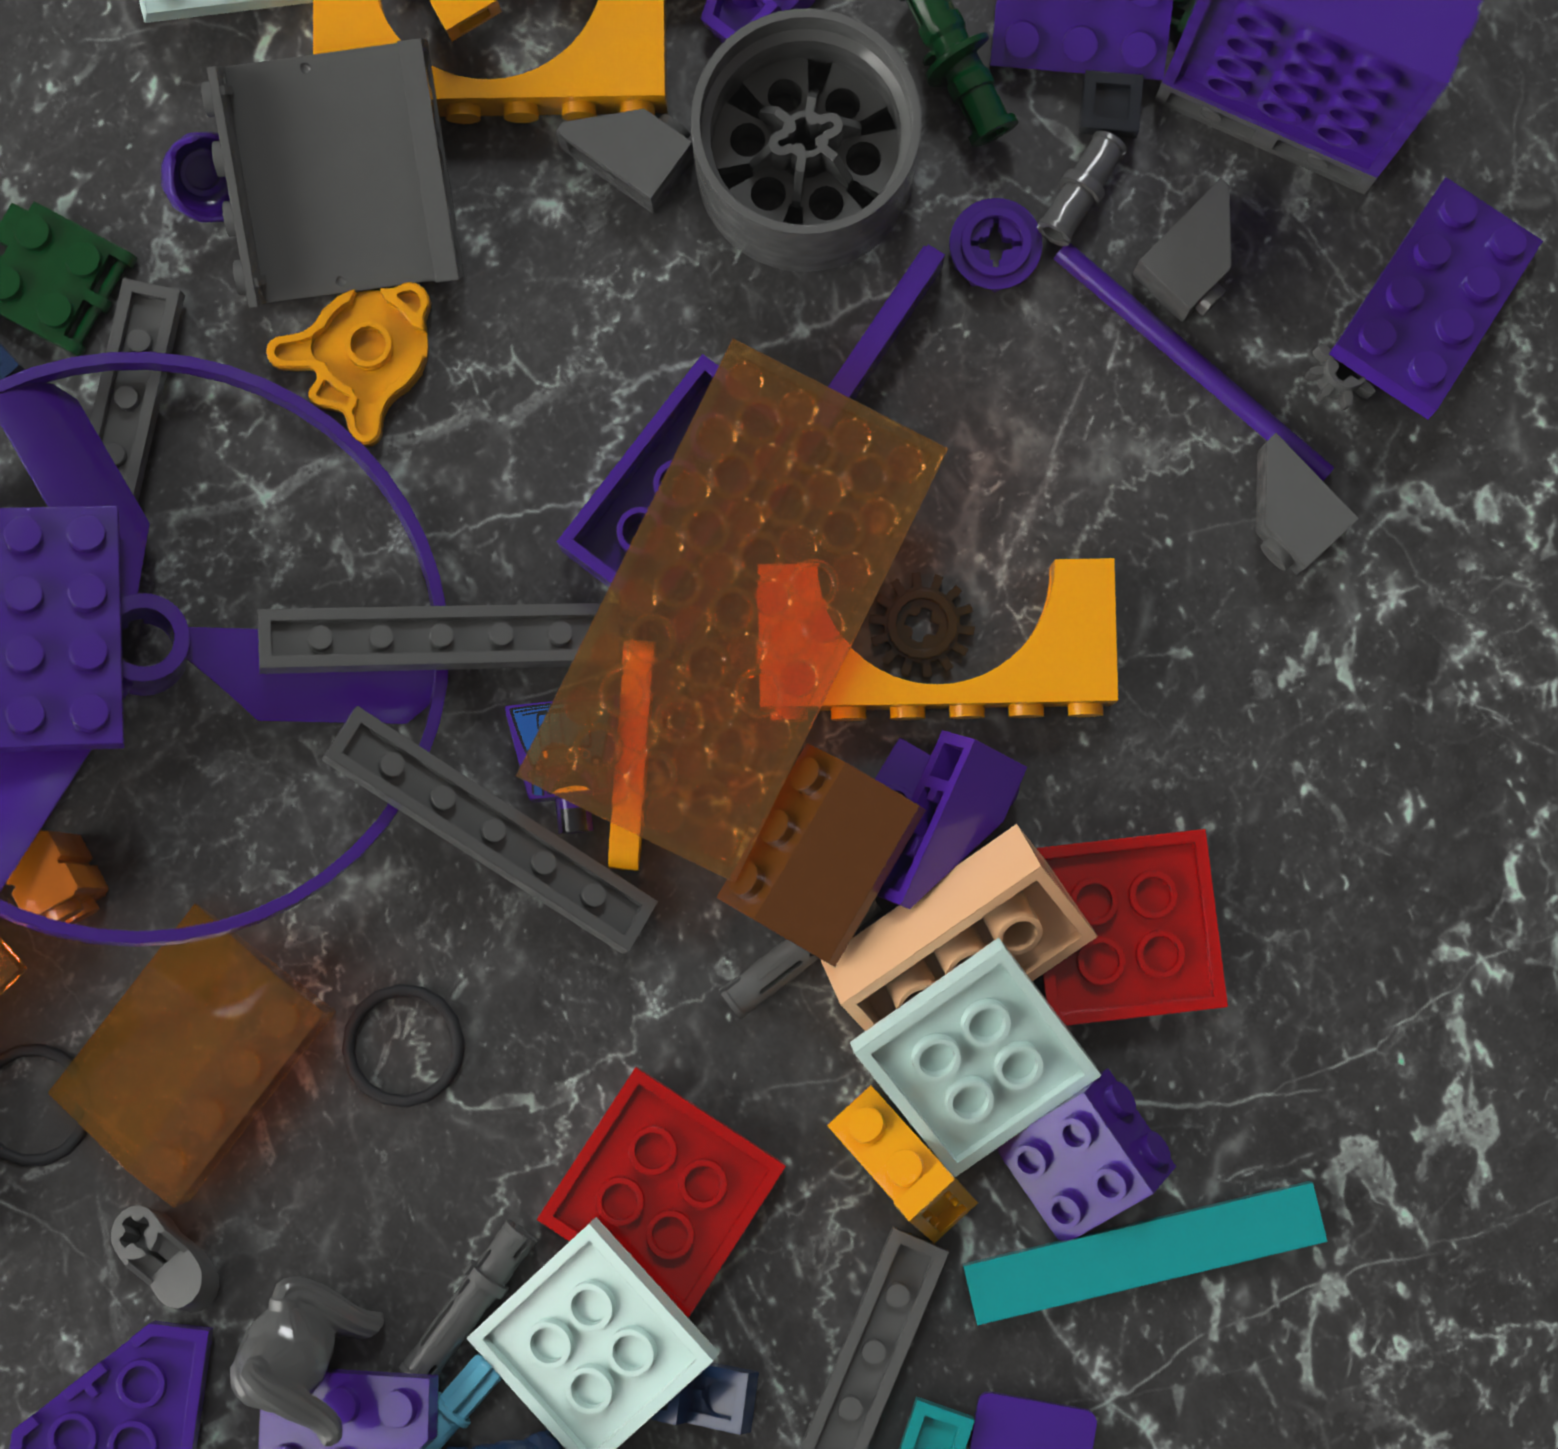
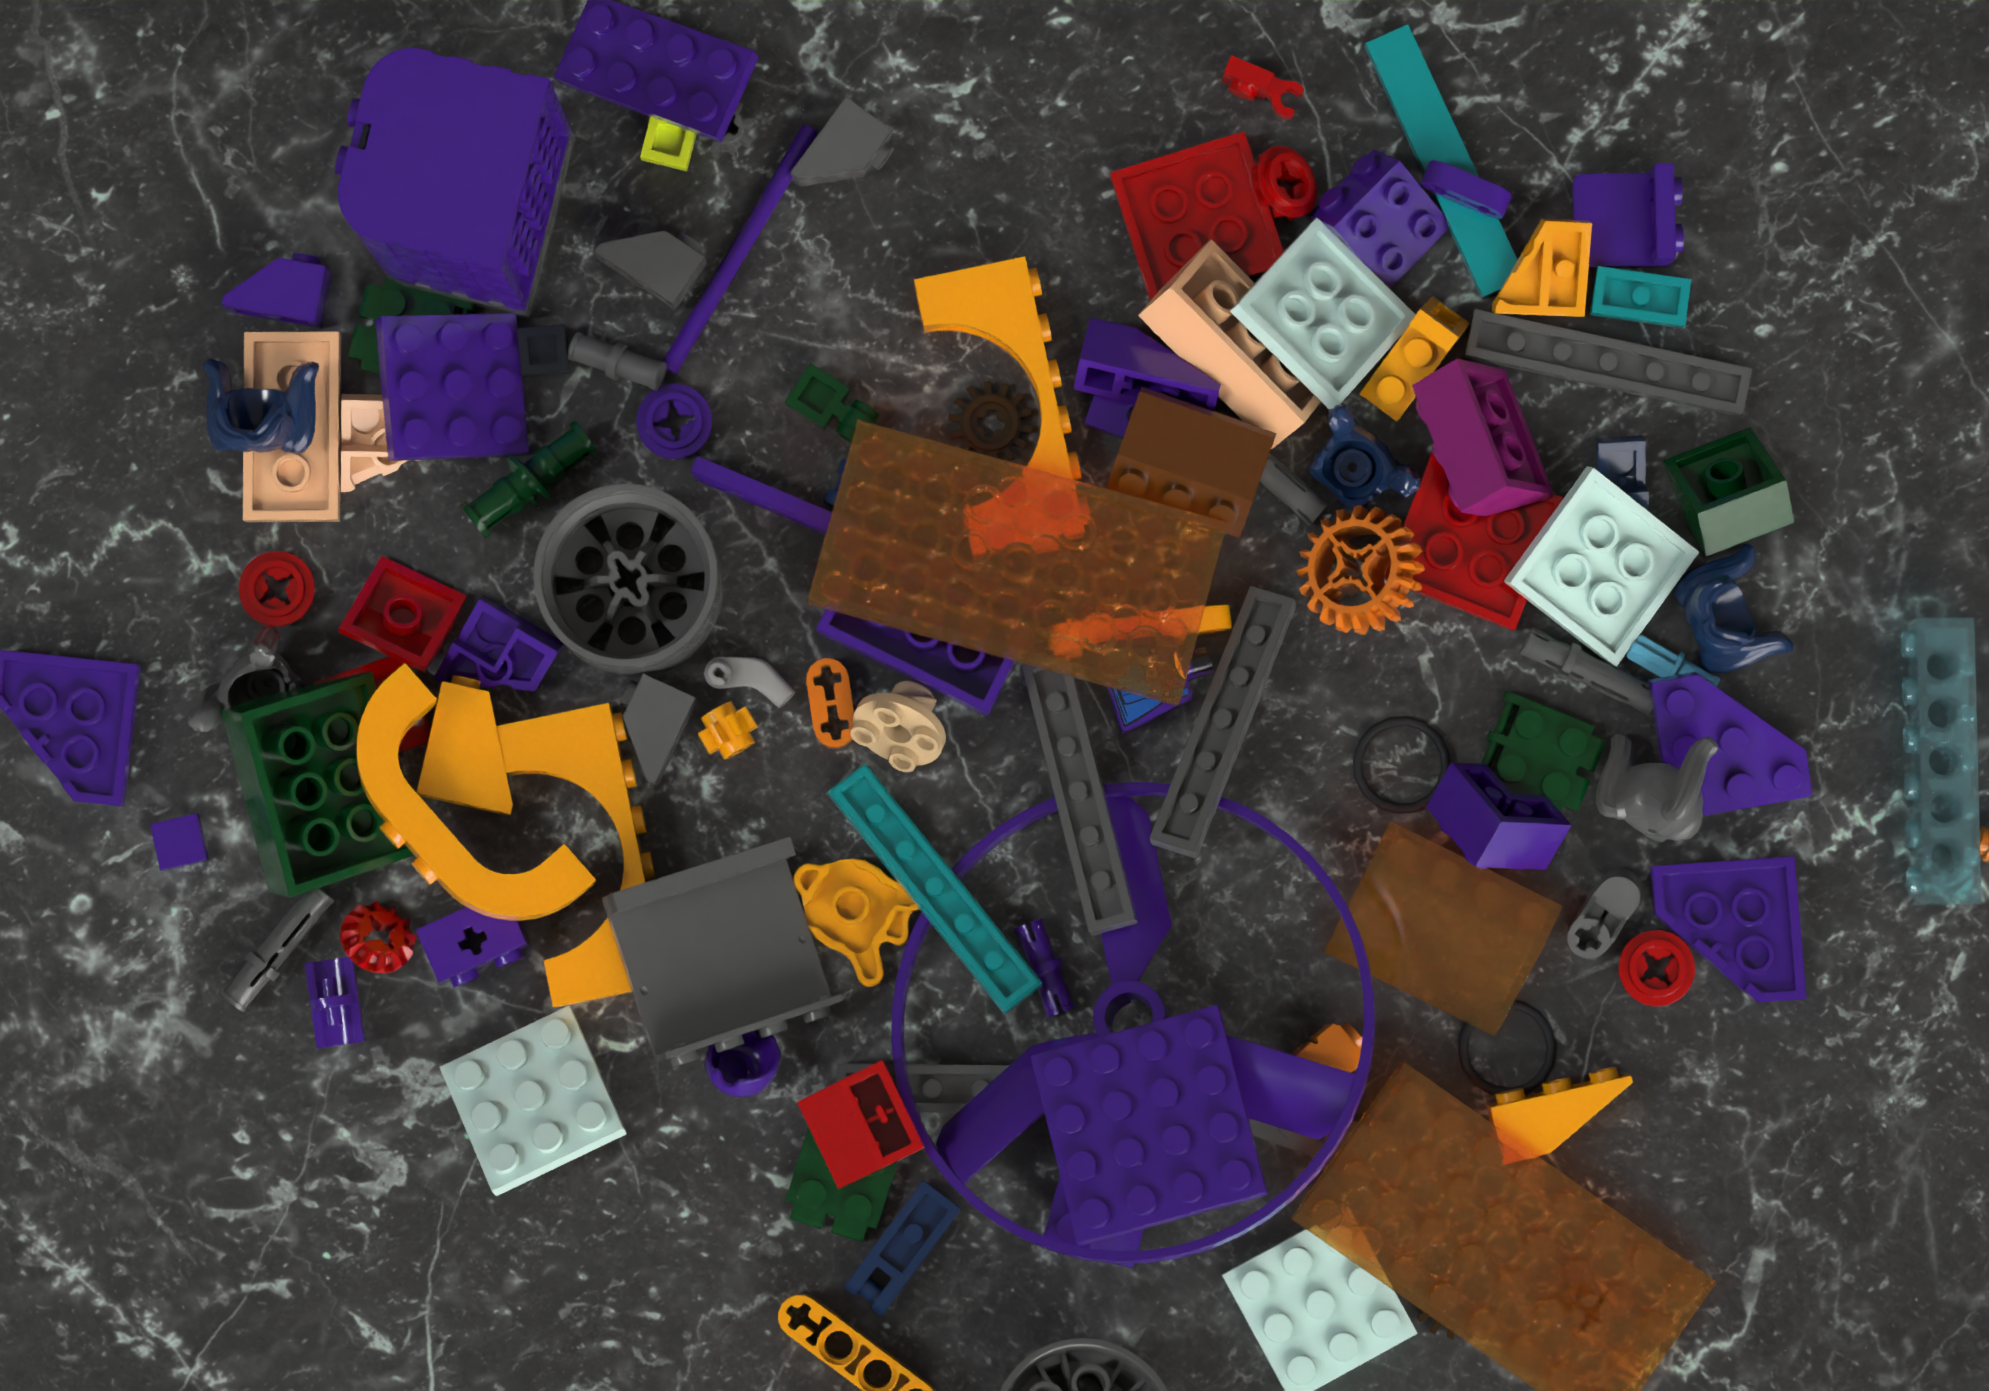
camera: 105 degrees left, 0 degrees up
(60, 1298) = (1678, 972): none -> red gear
(92, 300) = (860, 1124): none -> red slope
(244, 560) = (1045, 966): none -> dark purple pin
(292, 1141) = (1493, 823): none -> dark purple brick
(362, 445) = (935, 889): none -> teal tile
(377, 1220) = (1543, 752): none -> dark green plate
(569, 440) = (900, 726): none -> tan plate
(606, 235) = (727, 730): none -> light orange gear
(616, 353) = (819, 705): none -> orange beam
(672, 278) = (748, 672): none -> light grey arm
(684, 1017) = (1330, 588): none -> orange gear
(776, 1087) = (1373, 458): none -> dark blue hair
(780, 1226) = (1481, 438): none -> magenta slope
(977, 1357) = (1550, 272): none -> light orange wing
(988, 423) = (821, 399): none -> dark green plate
(1102, 1272) = (1466, 189): none -> dark purple beam
(1172, 1054) = (1290, 168): none -> red gear
(1289, 1027) = (1251, 81): none -> red plate
(1336, 297) = (667, 145): none -> neon yellow plate

